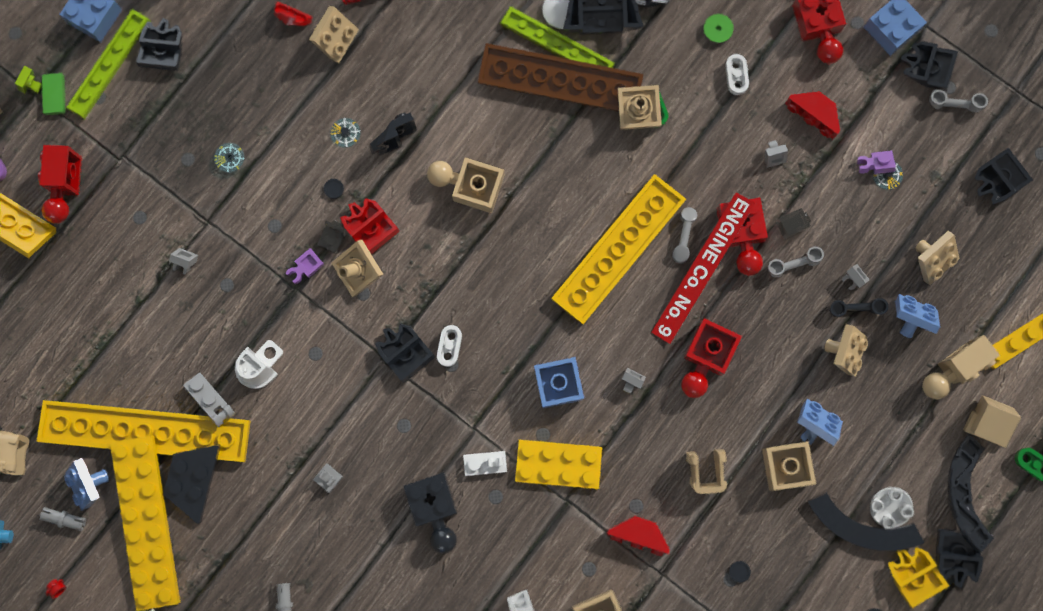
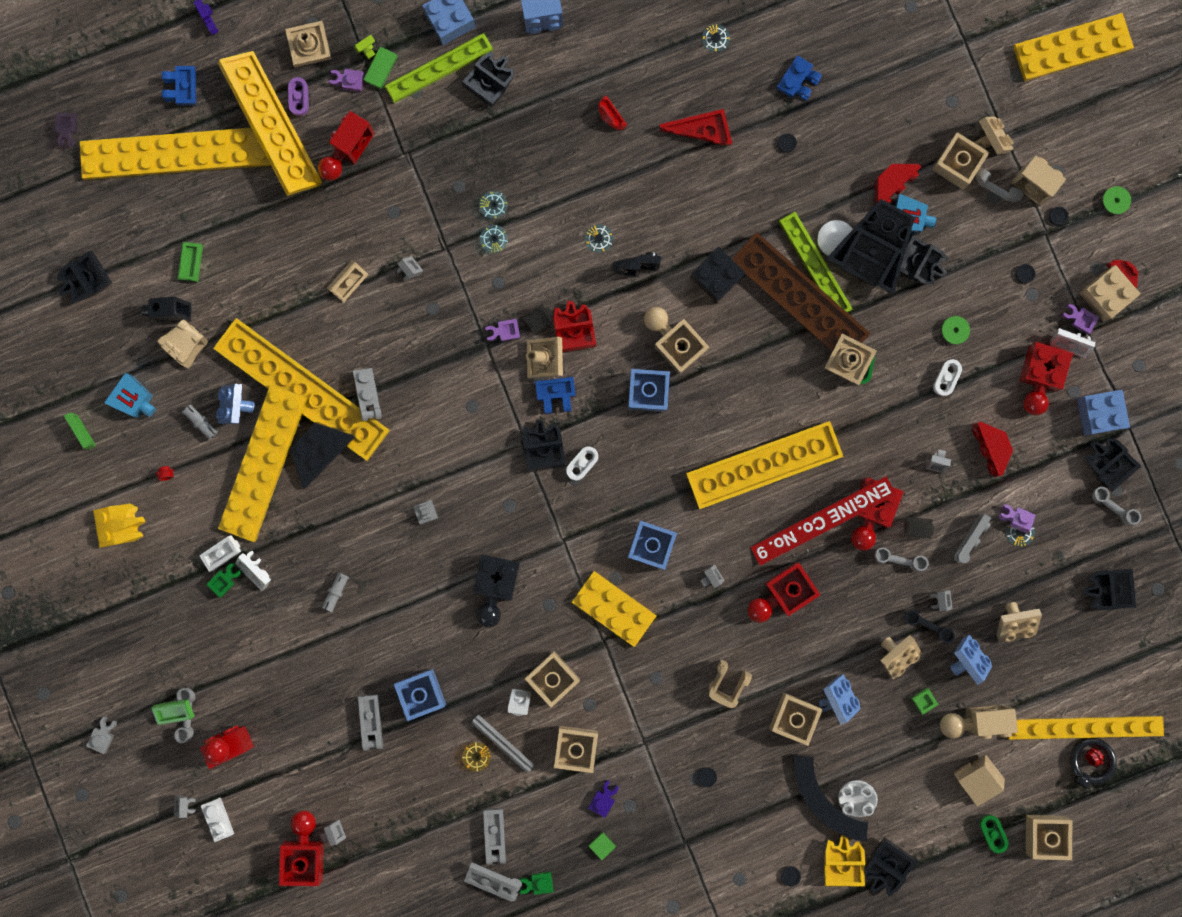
camera: 25 degrees right, 5 degrees up
(31, 121) = (350, 80): none -> medium lavender plate
(131, 305) = (347, 281): none -> tan slope
(247, 187) = (493, 238): none -> clear light blue piece
(254, 368) = (417, 390): white container -> none
(333, 188) = (563, 280): black piece -> none
(334, 34) = (636, 151): tan plate -> none
(384, 292) = (555, 389): none -> blue plate
(471, 242) = (648, 390): none -> medium blue brick
(473, 102) = (717, 274): none -> black brick
(485, 463) = (556, 573): white plate -> none
(539, 565) = (552, 679): none -> tan brick
(640, 533) = (646, 702): red slope -> none
(681, 252) = (813, 497): light grey bar -> none
(848, 206) = (972, 538): none -> light grey plate
(896, 379) = (924, 701): none -> bright green tile
(961, 497) = (918, 822): black tile -> none

